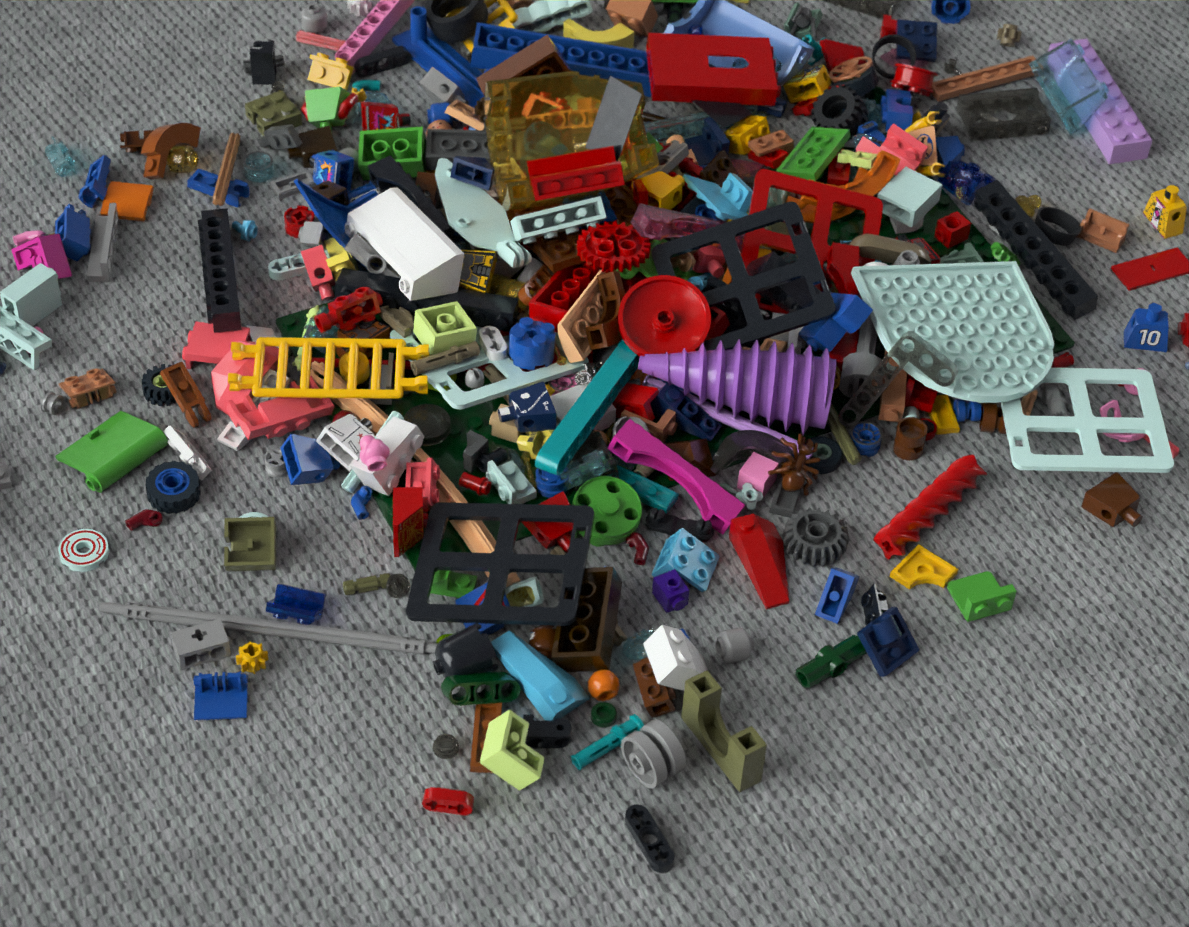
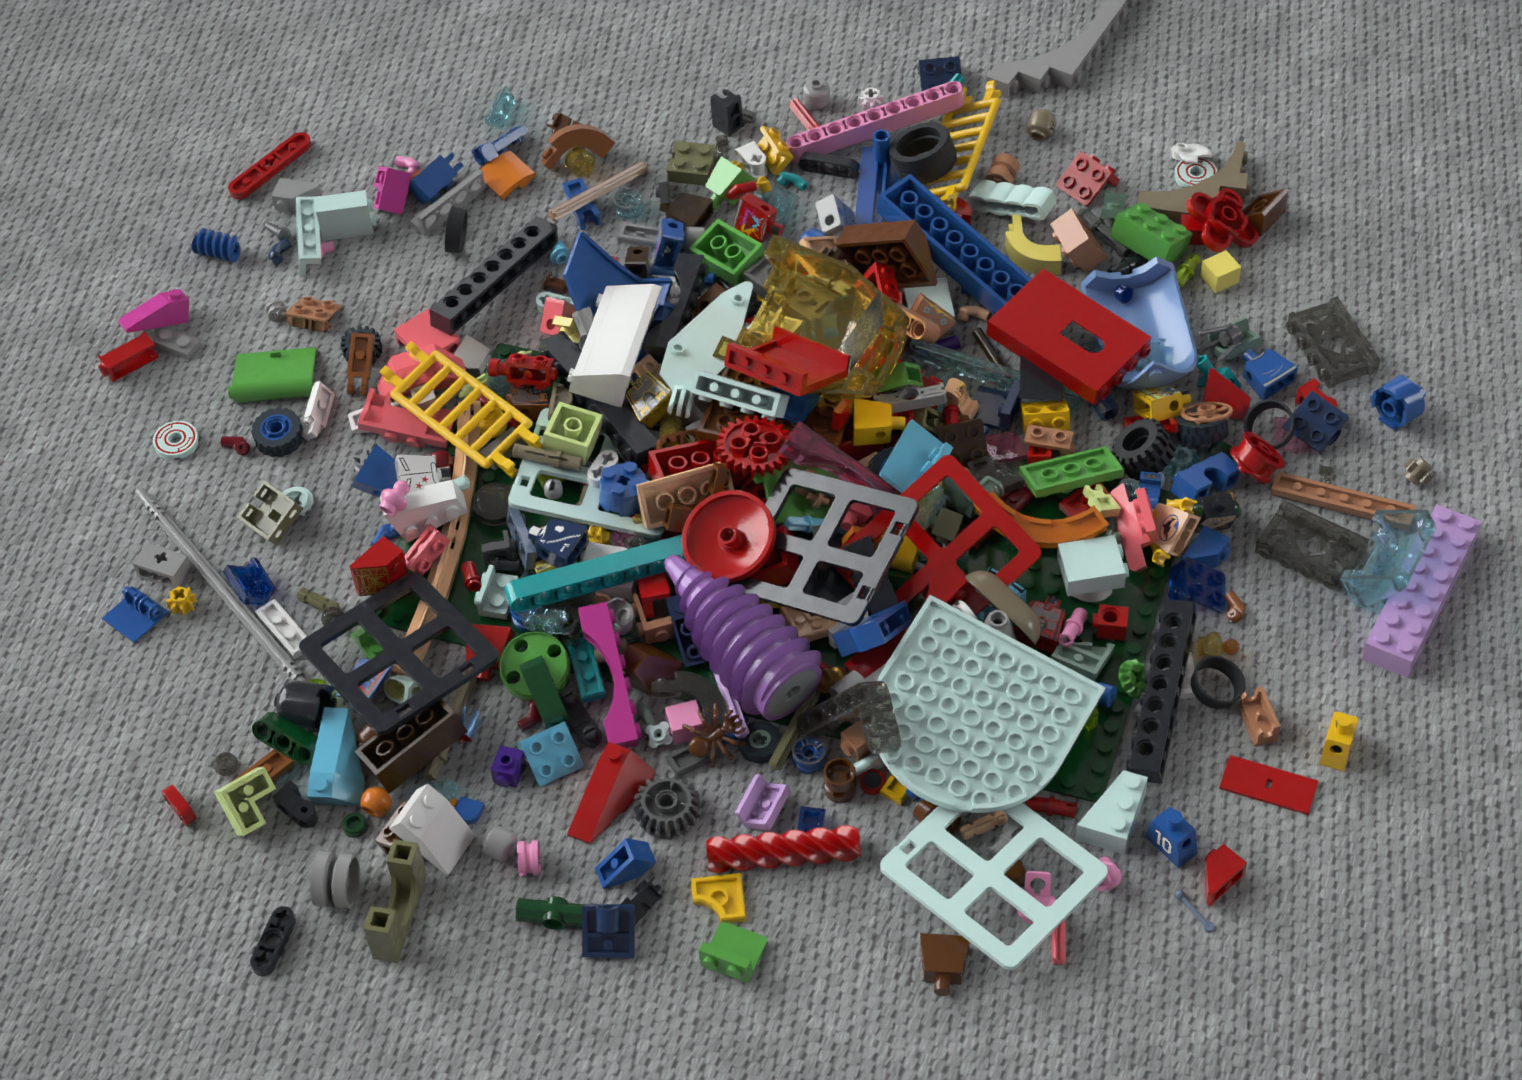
camera: 50 degrees right, 5 degrees up
(137, 258) = (456, 229): none -> black tyre
(271, 252) = (554, 283): none -> reddish brown piece
(316, 81) = (753, 159): none -> white piece
(363, 620) = (281, 627): none -> white tile
(473, 171) = (743, 307): dark blue slope -> none
(497, 433) = (517, 526): none -> sand blue plate
(606, 743) = (312, 846): teal pin -> none
(643, 517) = (544, 692): none -> dark green beam
(769, 637) = (529, 858): none -> bright pink wheel
(846, 28) = (1268, 372): none -> blue torso
(879, 490) = (762, 804): none -> lavender bracket
(919, 478) = (811, 818): none -> clear blue plate
(937, 246) = (1073, 627): none -> bright pink pin
(1006, 179) = (1236, 609): none -> dark orange arm
(1100, 340) = (1114, 814): none -> light aqua wedge

